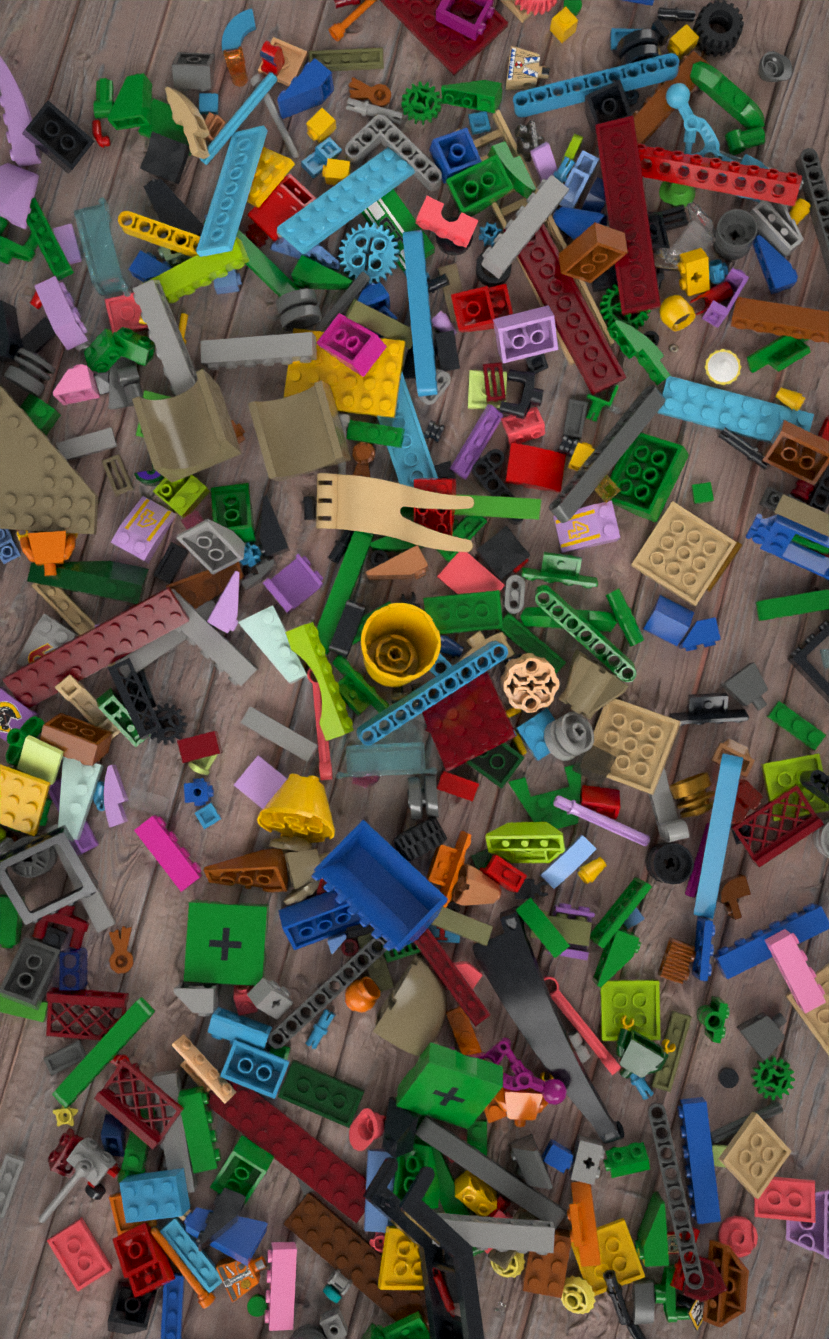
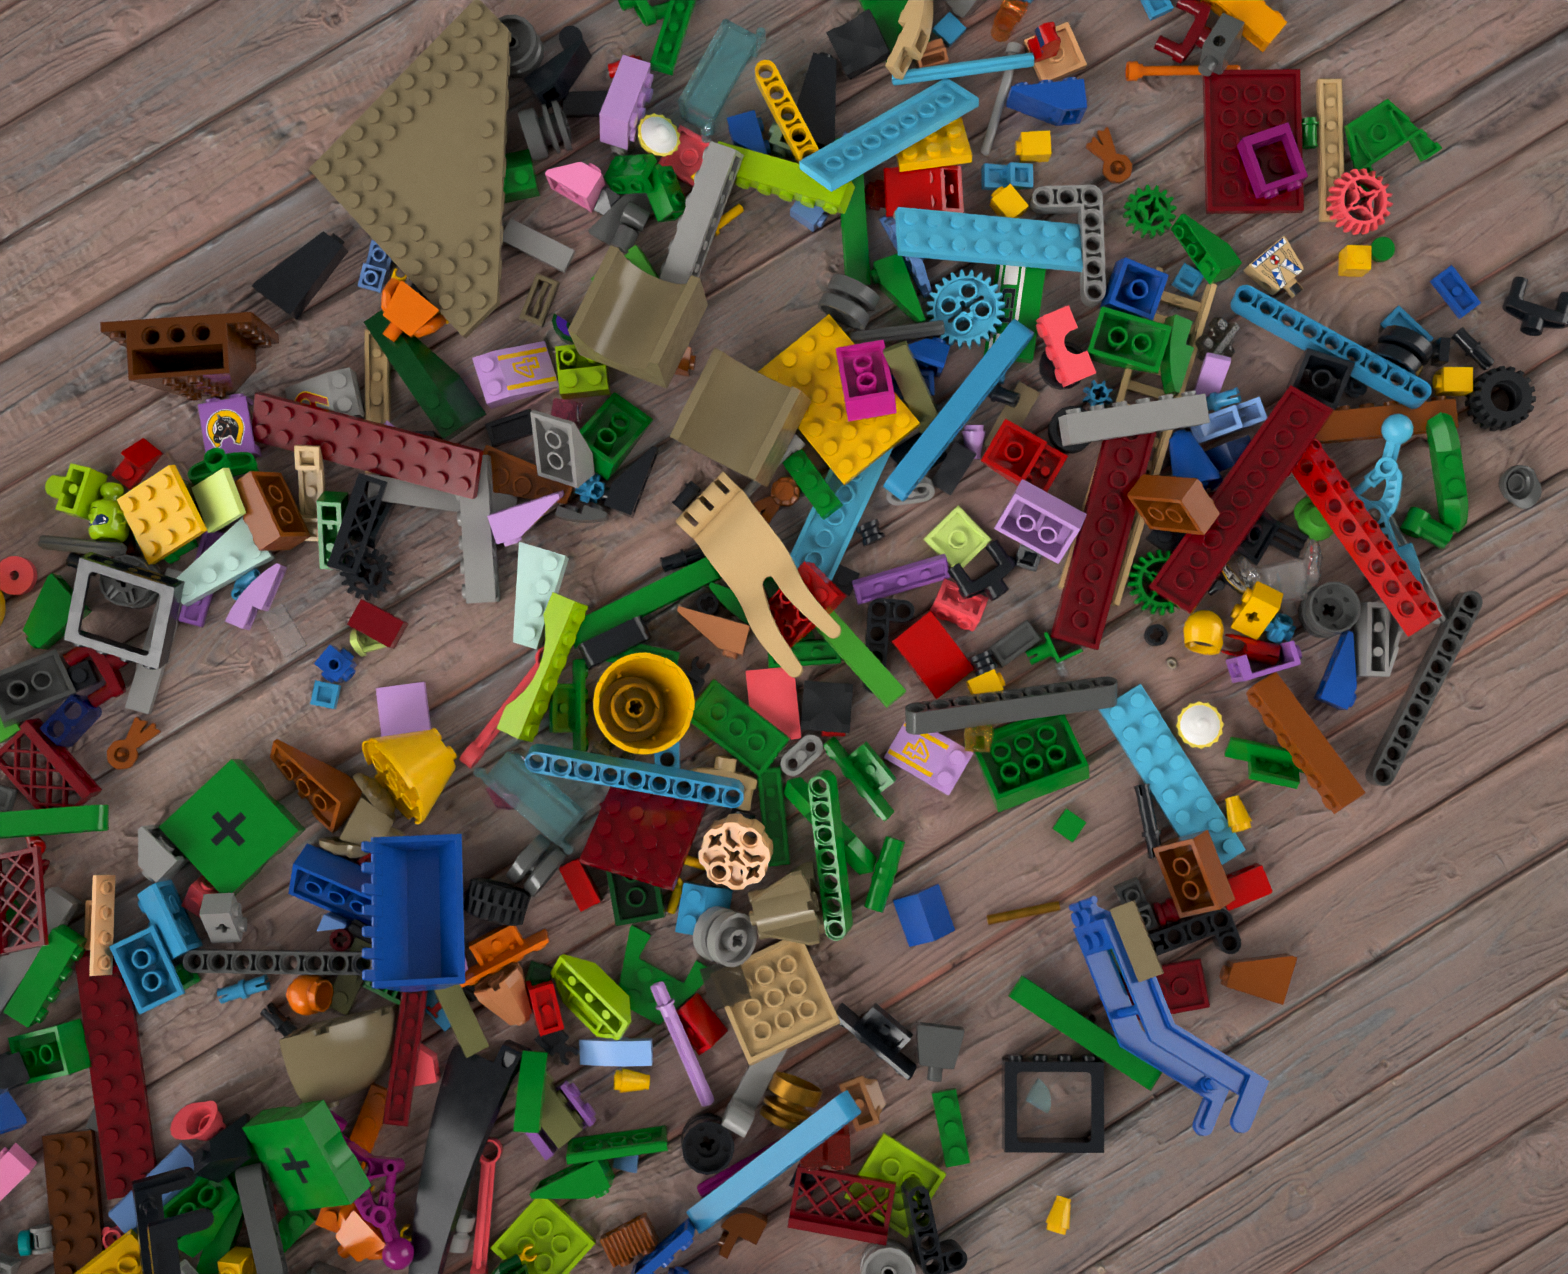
camera: 45 degrees right, 0 degrees up
(68, 243) = (695, 41): lavender tile -> none
(98, 315) = (658, 135): none -> white piece
(168, 852) = (257, 695): dark pink brick -> none
(259, 350) = (776, 305): light grey brick -> none
(279, 734) = (461, 681): light grey slope -> none
(294, 584) = (606, 553): medium lavender panel -> none
(321, 1093) = (188, 1049): dark green tile -> none
(349, 59) = (1119, 106): olive tile -> none
(358, 1027) = (278, 1020): none -> black axle
(373, 110) = (1098, 178): light grey pin -> none
(450, 647) = (694, 746): dark blue cone -> none
(496, 398) = (957, 555): dark red tile -> none
(573, 147) = (1253, 386): lime beam -> none
(637, 344) = (1137, 626): green slope -> none
(683, 553) = (996, 866): tan plate -> none
(700, 633) = (940, 955): blue slope -> none
(800, 210) = (1413, 645): yellow cone -> none

